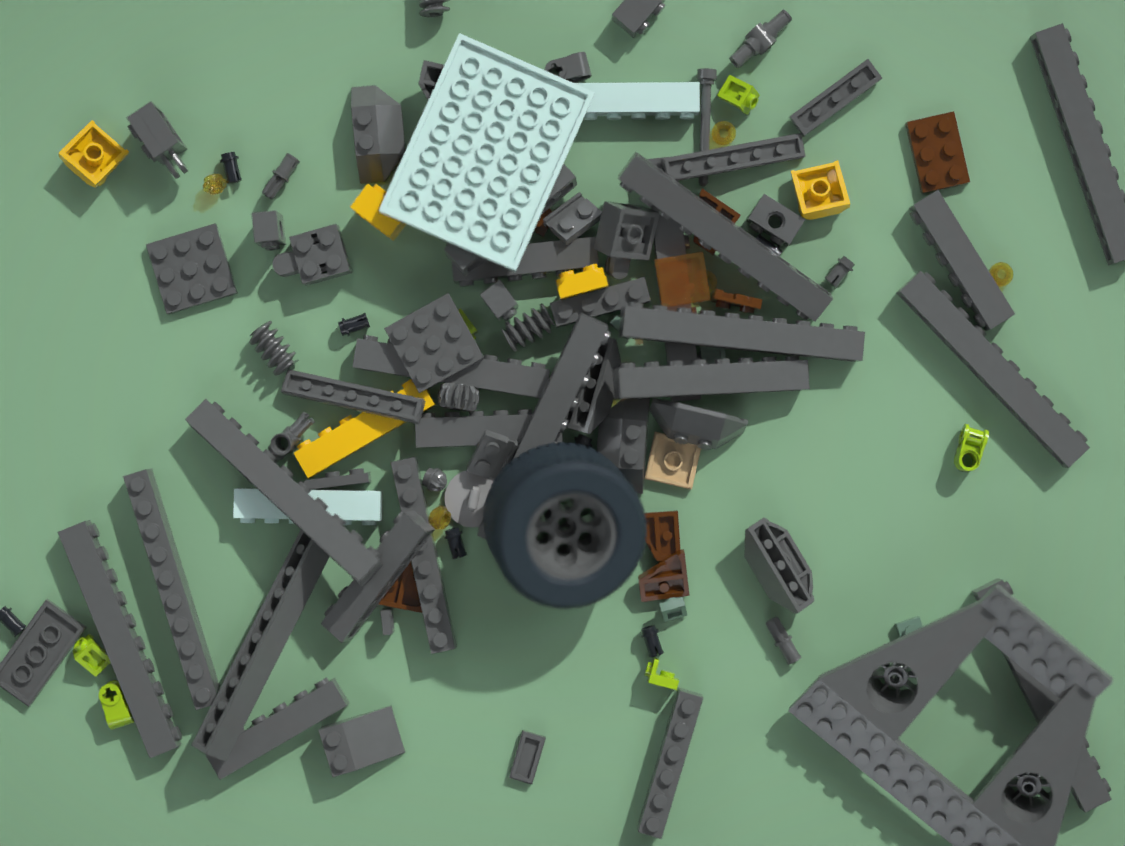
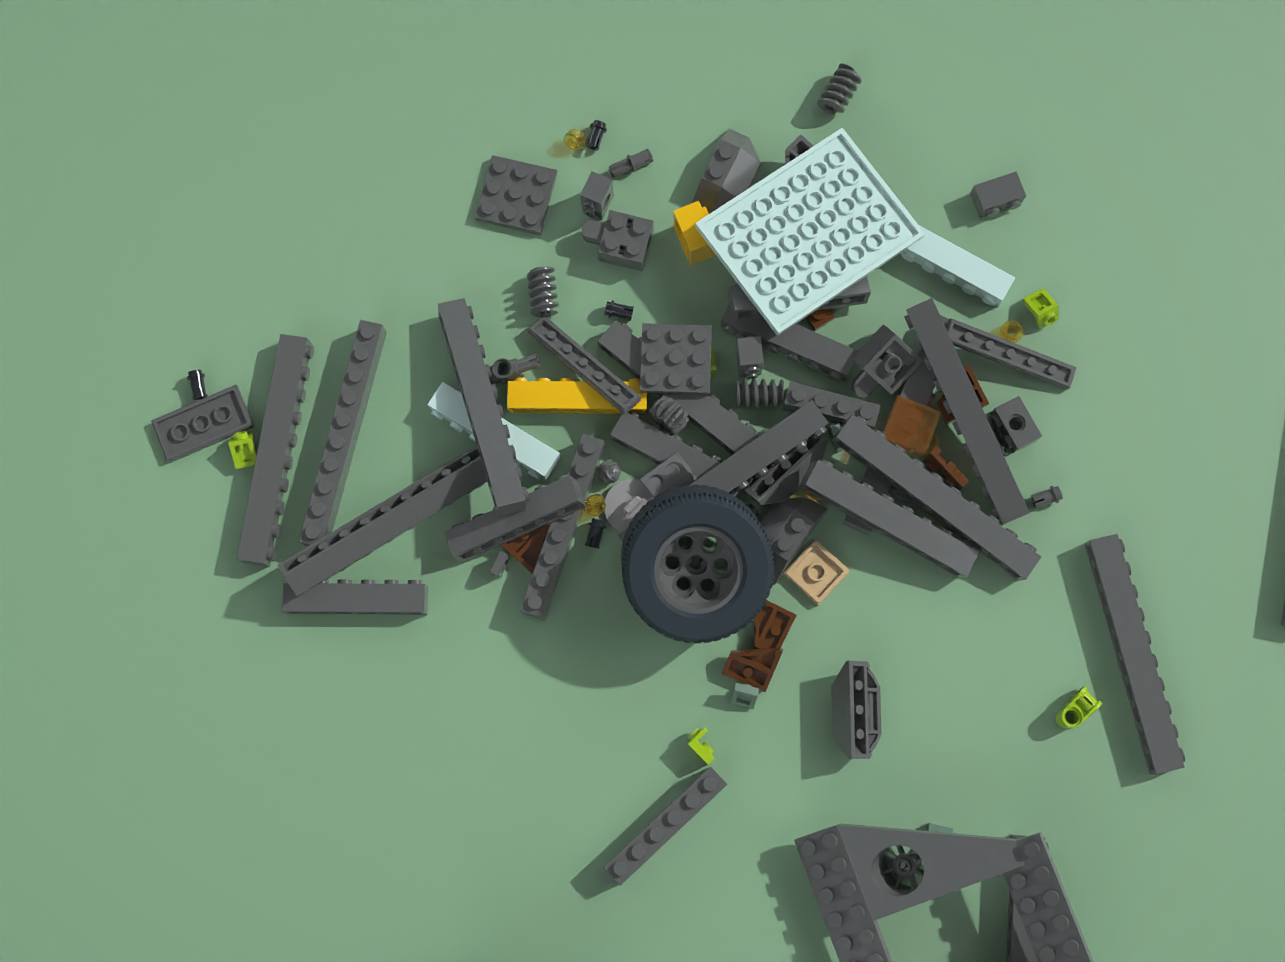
camera: 35 degrees right, 10 degrees down
(92, 155) = (493, 64): yellow slope -> none
(115, 707) = (235, 502): lime piece -> none
(158, 136) = (553, 76): dark grey brick -> none
(334, 479) = (528, 424): dark grey hinge -> none
(361, 740) = (417, 650): dark grey slope -> none
(527, 757) = (547, 749): dark grey tile -> none
(572, 67) = (918, 208): dark grey piece -> none
(572, 218) = (847, 327): dark grey plate -> none
(580, 283) = (826, 378): yellow slope -> none
(652, 640) = (711, 712): black pin -> none
(696, 425) = (855, 551): dark grey wedge -> none
(706, 78) = (1022, 280): dark grey piece -> none
(760, 38) = (1084, 274): dark grey pin -> none
(783, 640) = (823, 778): dark grey axle -> none
(820, 191) = (1067, 422): yellow slope -> none
(835, 97) = (1121, 355): dark grey plate -> none
(937, 152) = (1183, 448): reddish brown plate -> none
(961, 260) = (1156, 547): dark grey brick -> none
(1008, 273) = (1176, 578): clear yellow plate -> none

